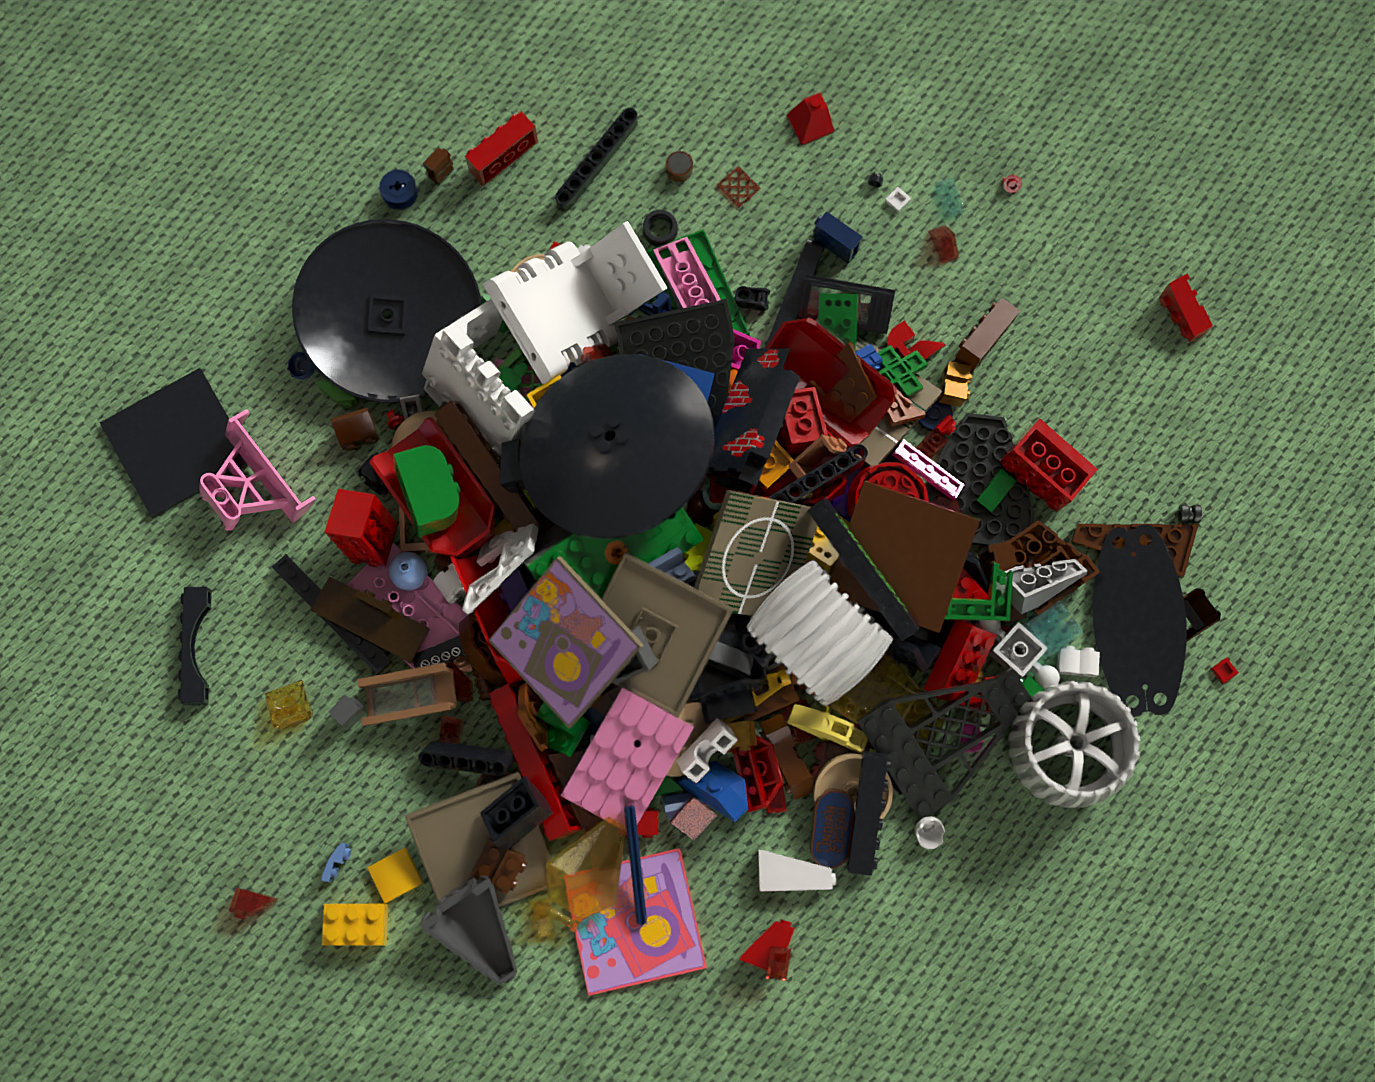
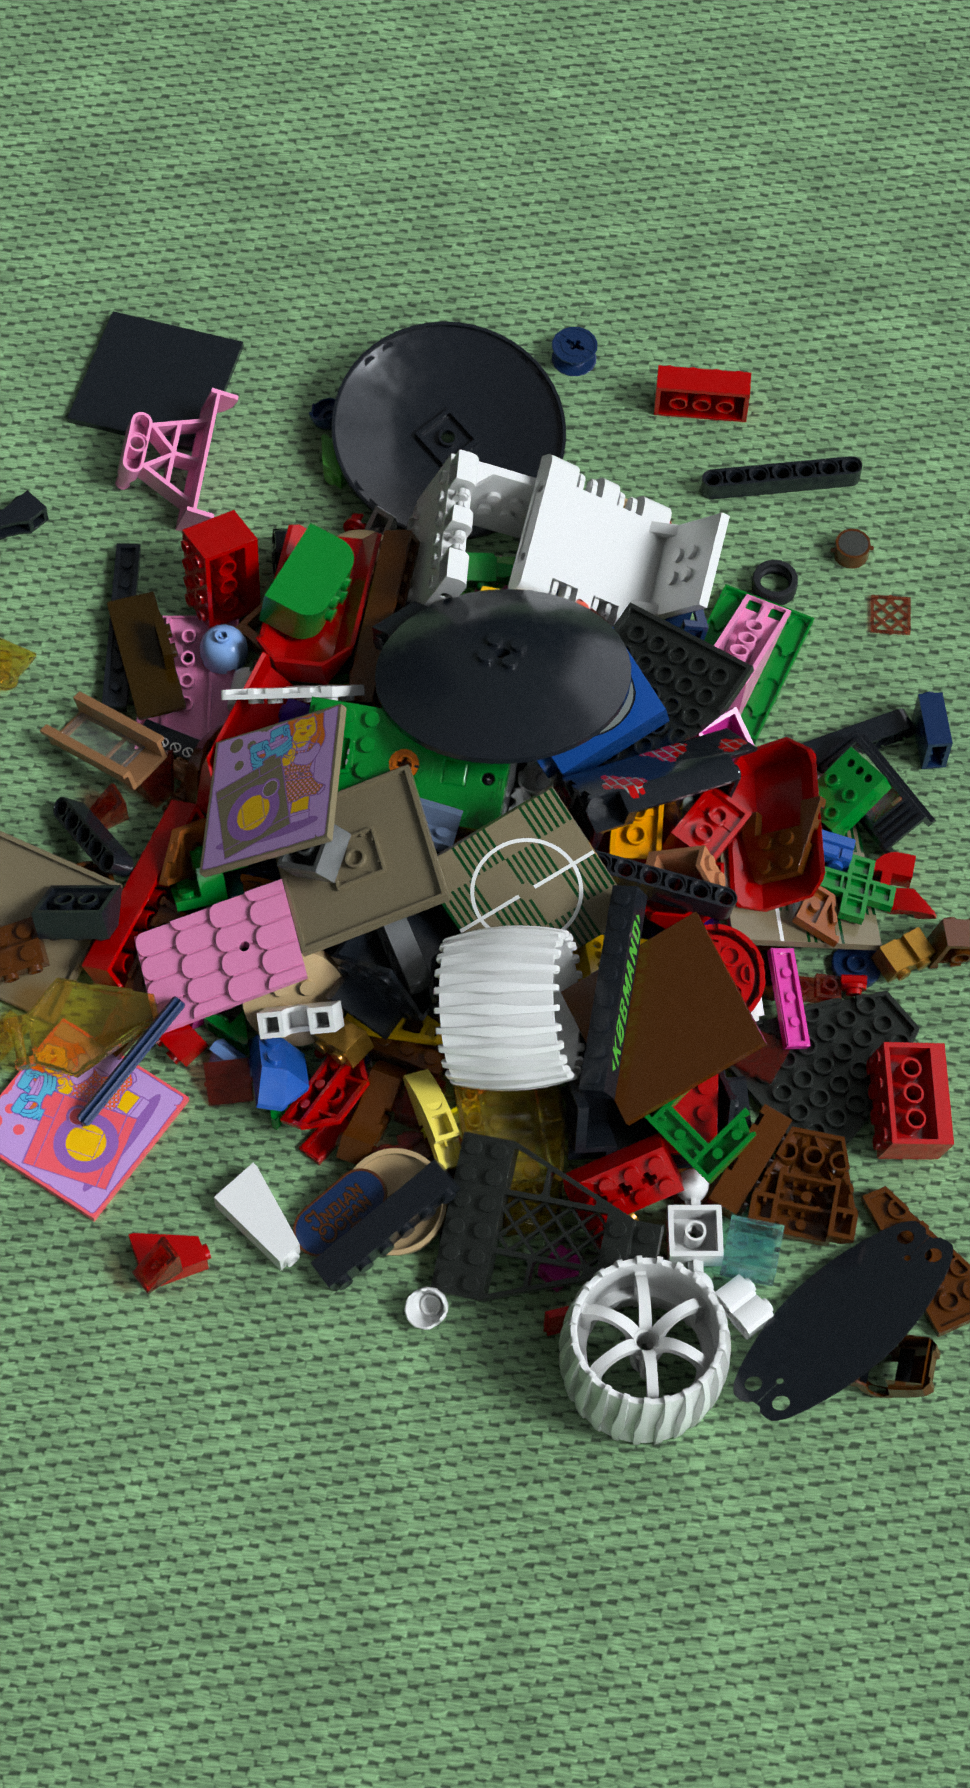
camera: 45 degrees right, 15 degrees down
(347, 712) = (40, 707): dark grey brick -> none
(355, 429) = (312, 498): reddish brown slope -> none
(438, 165) = (630, 359): reddish brown brick -> none
(753, 298) = (795, 716): black piece -> none
(996, 490) = (835, 1077): green slope -> none
(1004, 767) = (554, 1320): none -> red piece
(1040, 583) = (771, 1185): light grey wedge -> none
(1224, 670) = (884, 1460): red tile -> none

